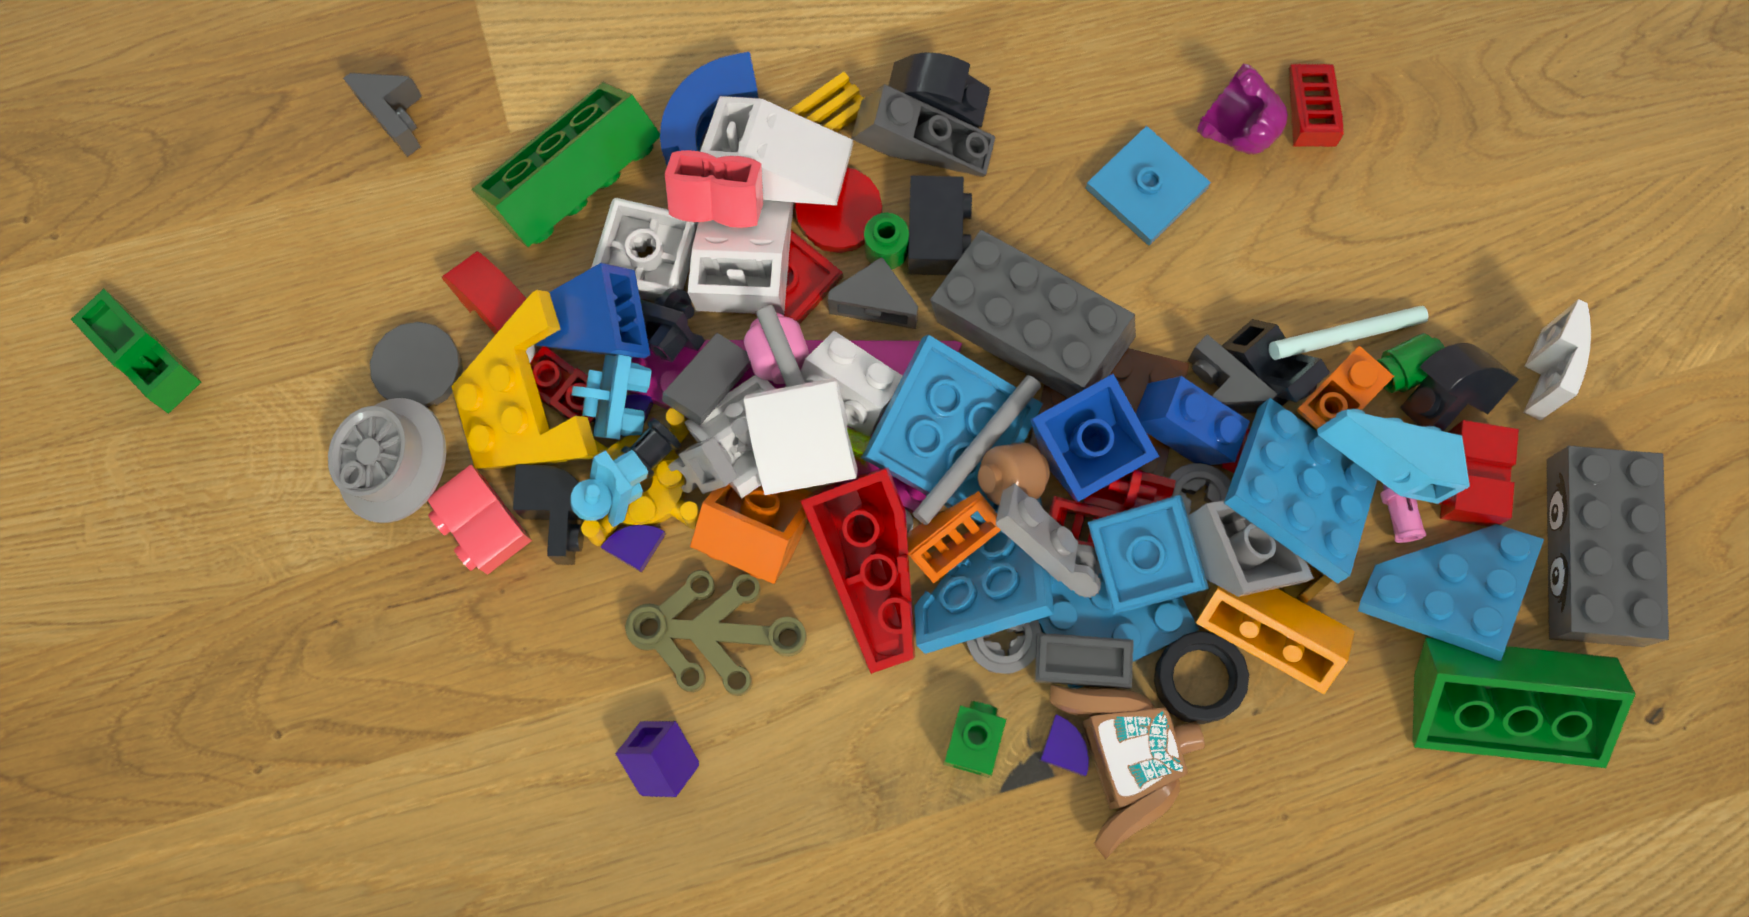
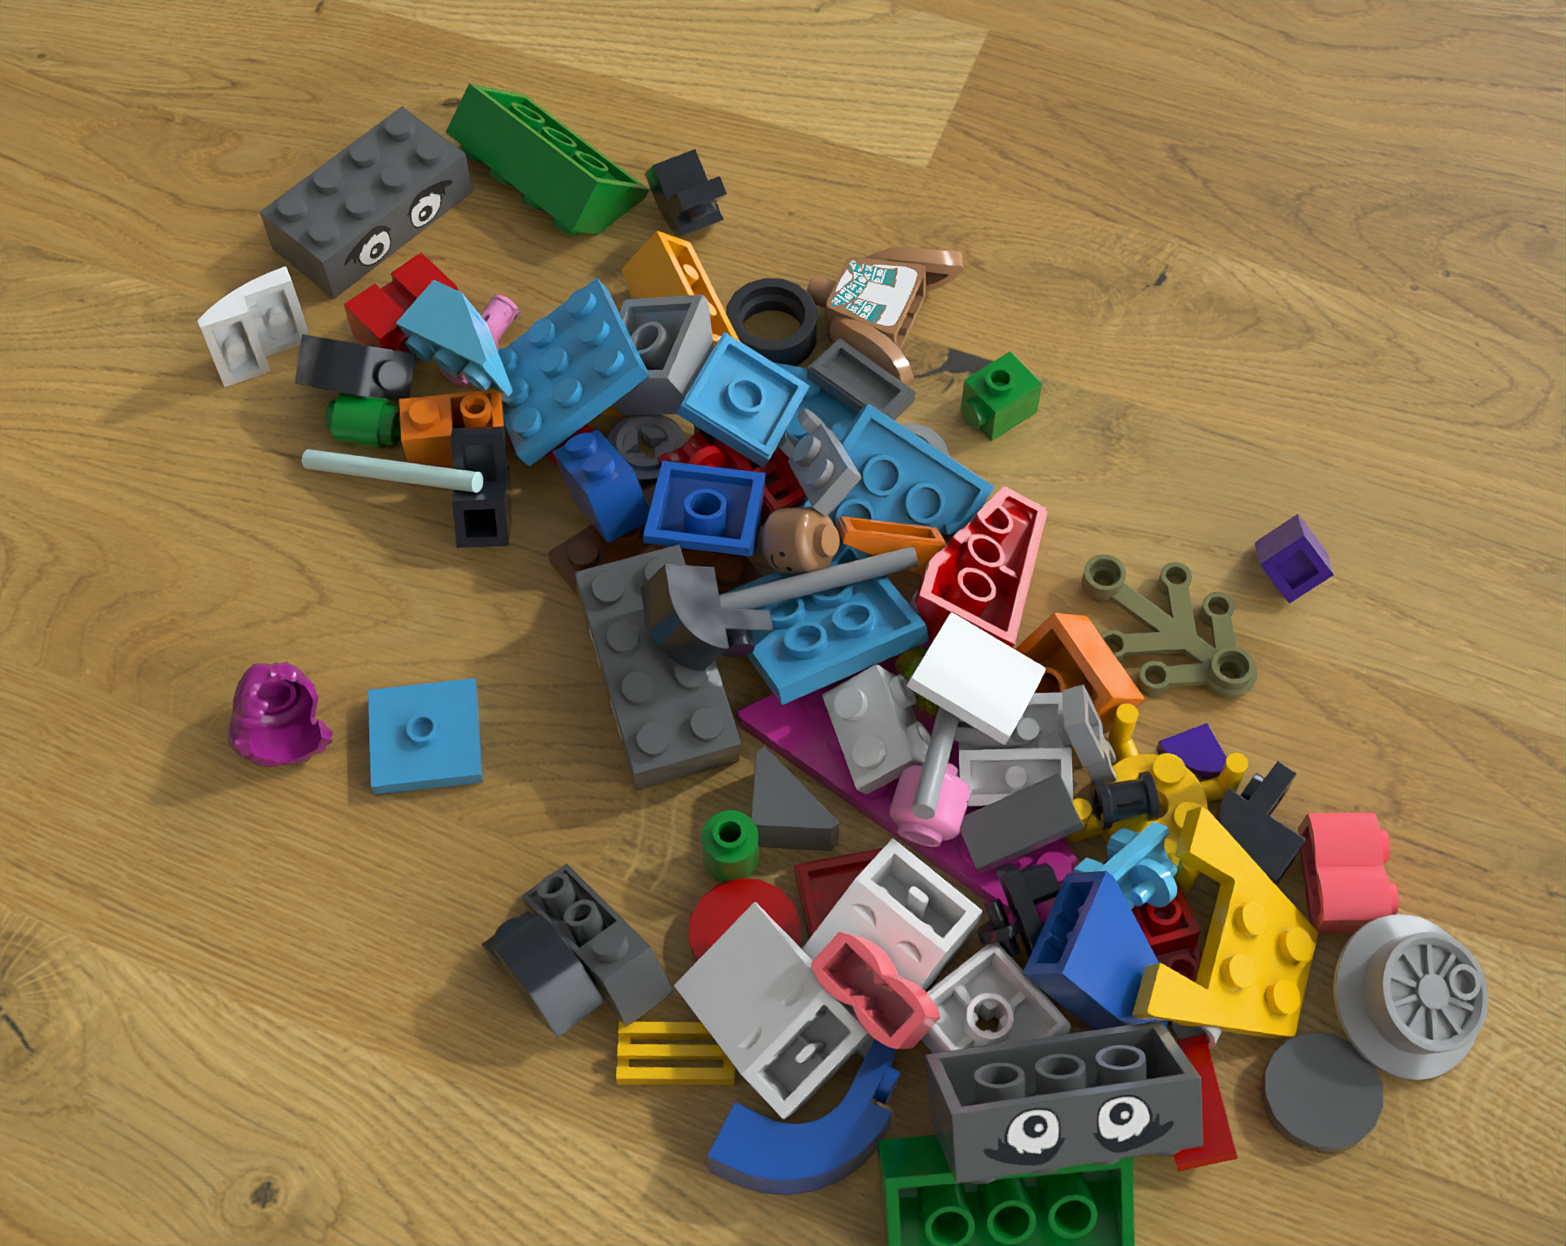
camera: 145 degrees left, 15 degrees down
(556, 200) = (1063, 1101): none -> dark grey brick
(609, 488) = (1189, 772): medium azure hips -> none
(937, 224) = (661, 835): black brick -> none
(1015, 320) = (688, 618): none -> black brick
(1065, 747) = (927, 353): dark purple tile -> none
(1237, 384) = (535, 503): dark grey slope -> none
(1315, 134) = (183, 683): red slope -> none
(1376, 749) = (685, 193): none -> black brick
(1457, 589) = (507, 244): dark azure plate -> none

